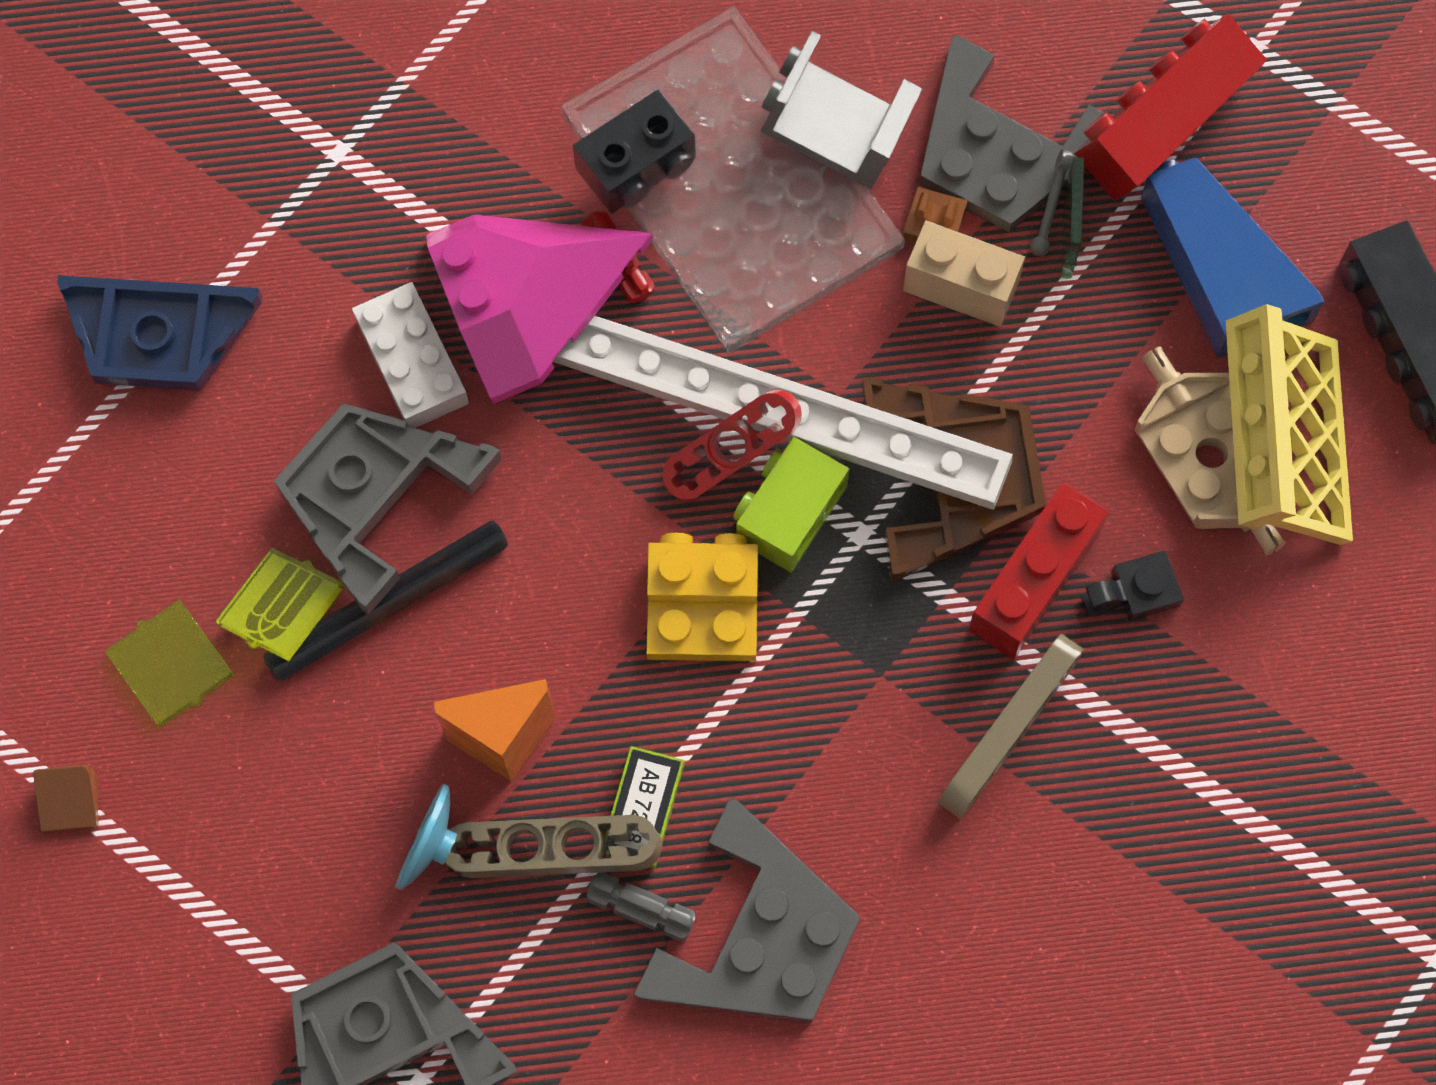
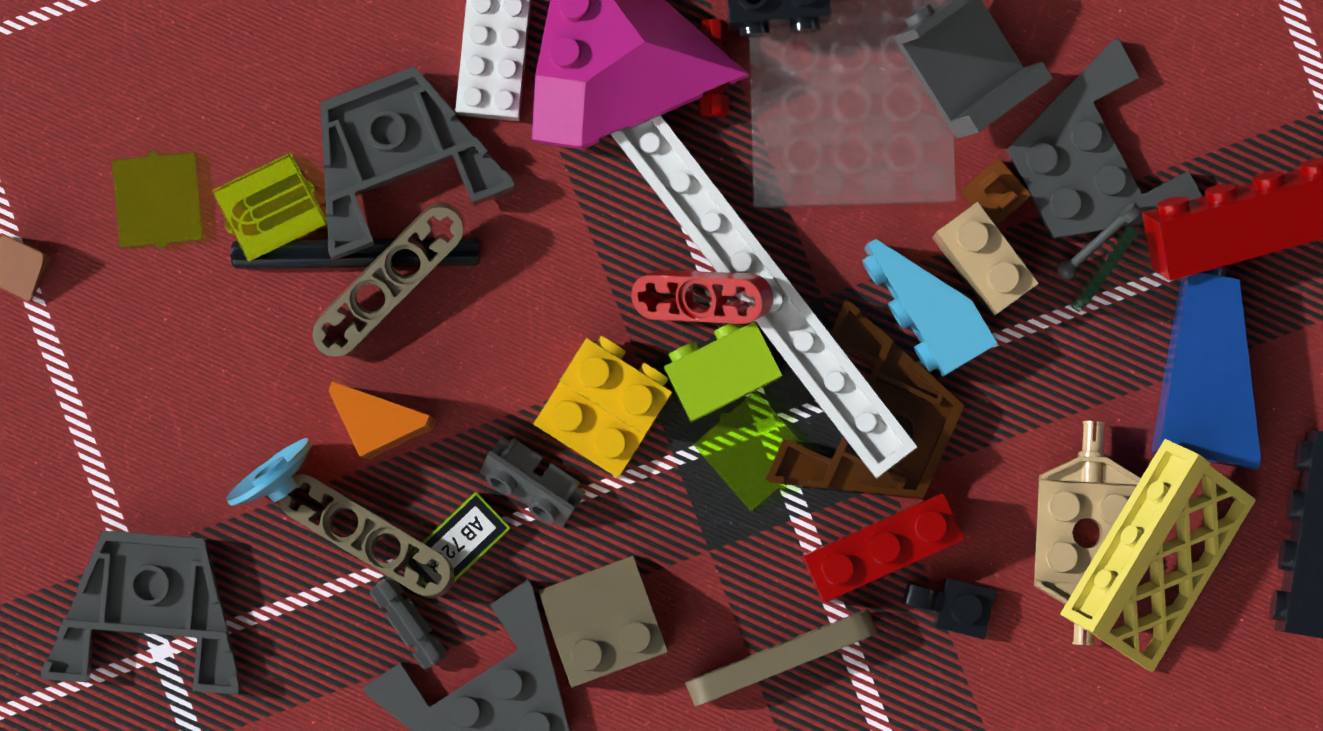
camera: 30 degrees right, 15 degrees up
(438, 601) = (392, 283): none -> dark tan beam
(654, 709) = (511, 471): none -> dark grey hinge
(827, 793) = (602, 621): none -> dark tan slope
(855, 565) = (745, 447): none -> clear neon green piece
(949, 342) = (939, 315): none -> medium azure slope

